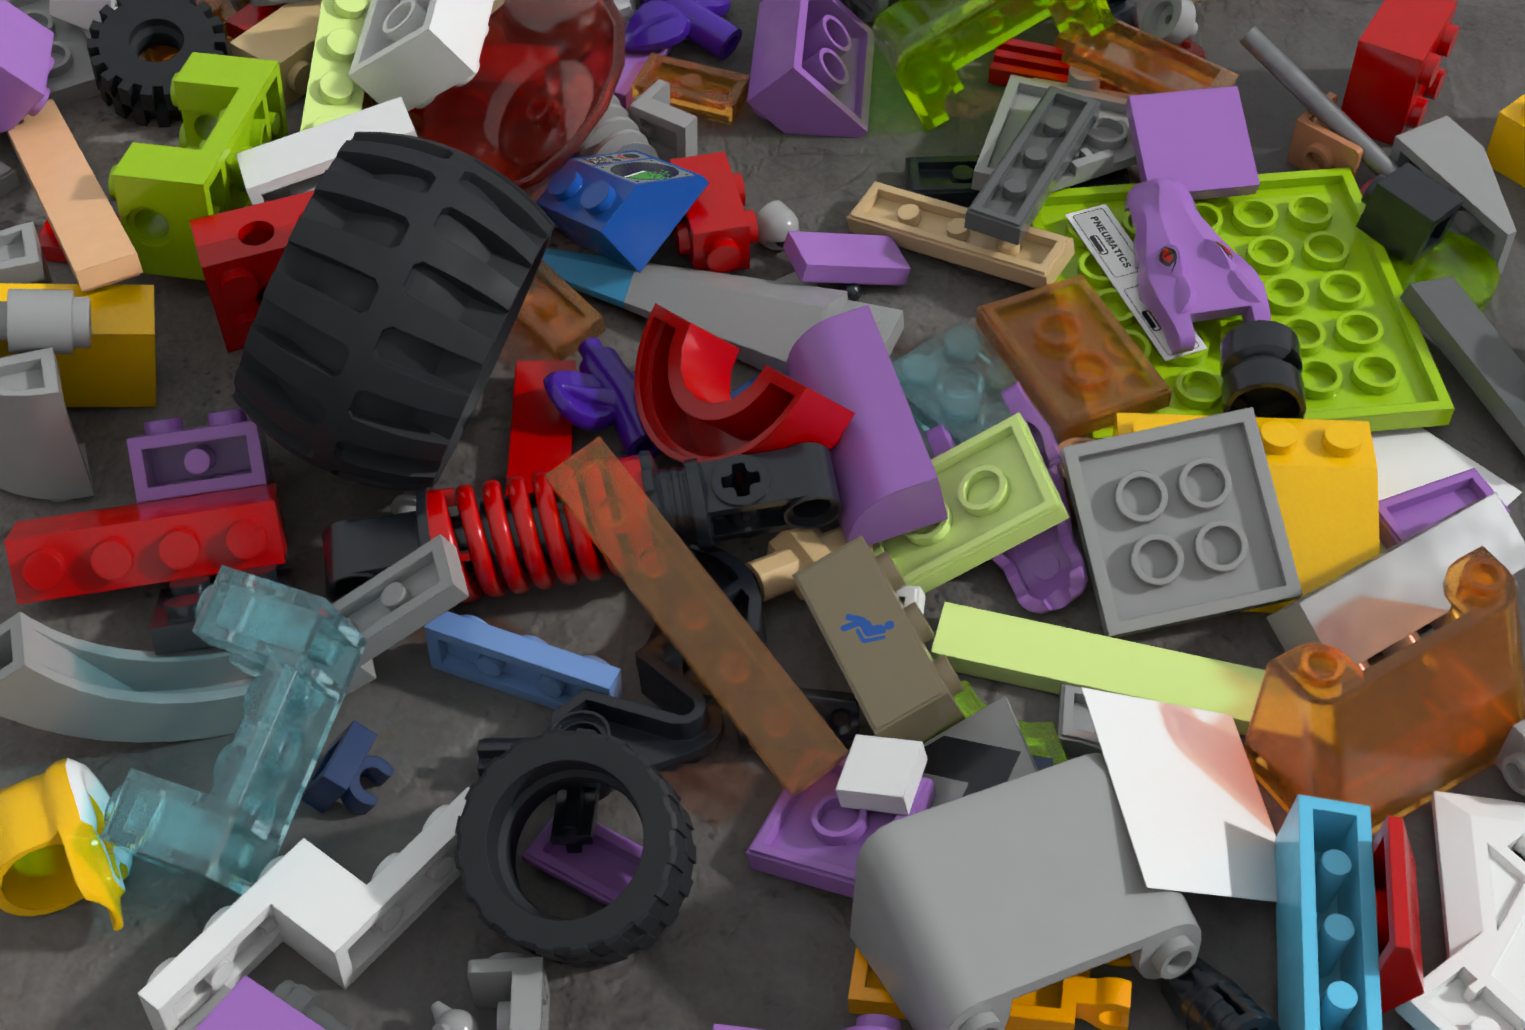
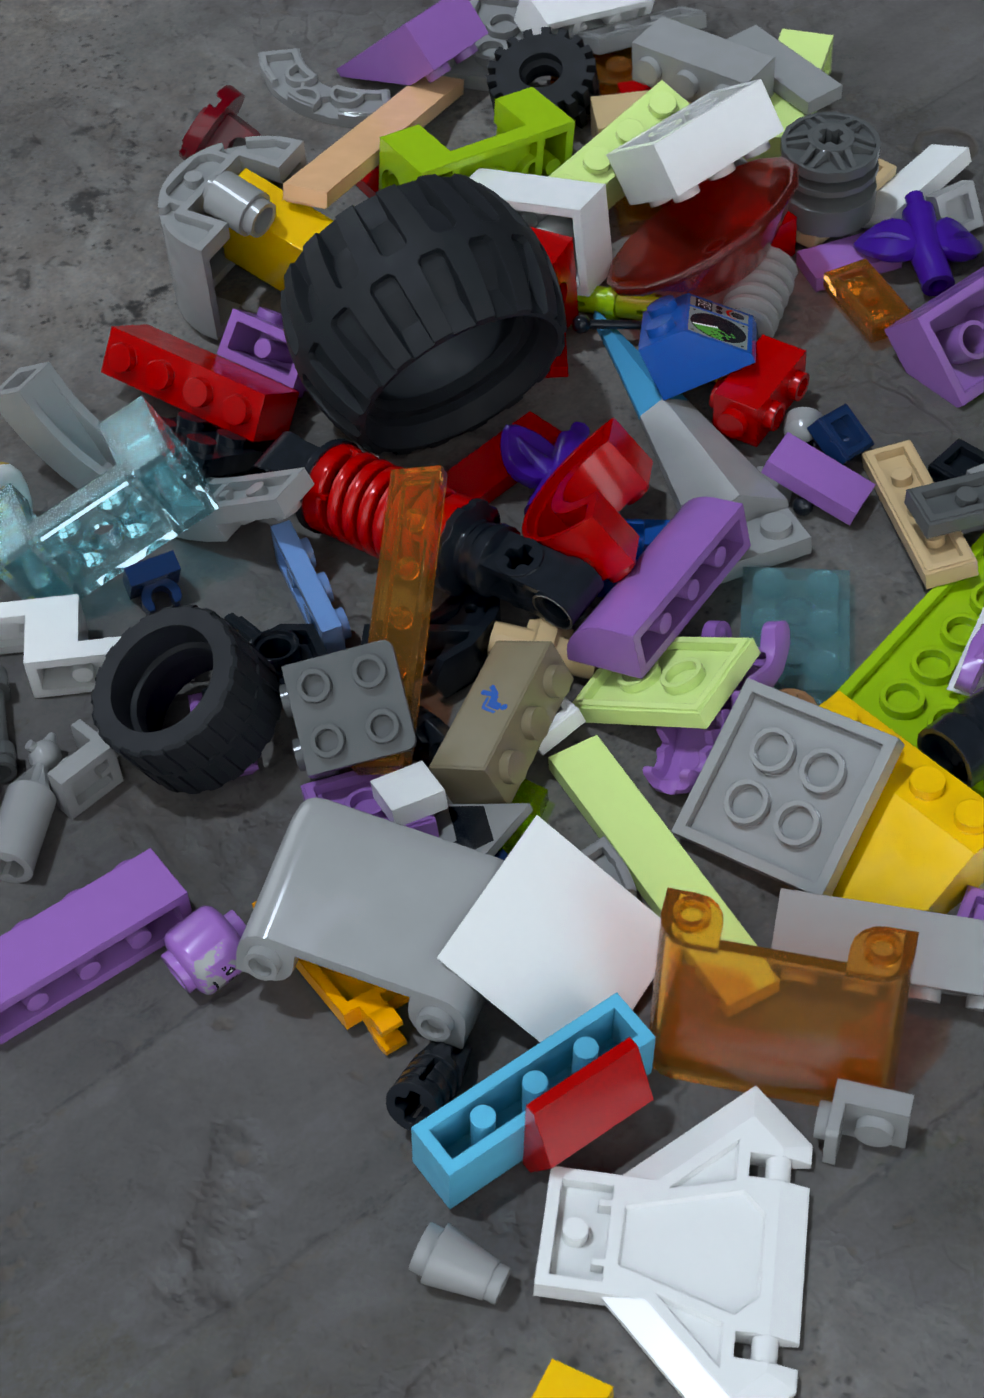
camera: 50 degrees right, 0 degrees up
(558, 315) = (587, 386): clear orange plate -> none
(665, 127) = (811, 311): light grey bracket -> none
(747, 740) = (347, 708): none -> dark grey bracket
(817, 209) = (841, 435): none -> dark blue tile
(1072, 357) = (876, 640): clear orange tile -> none

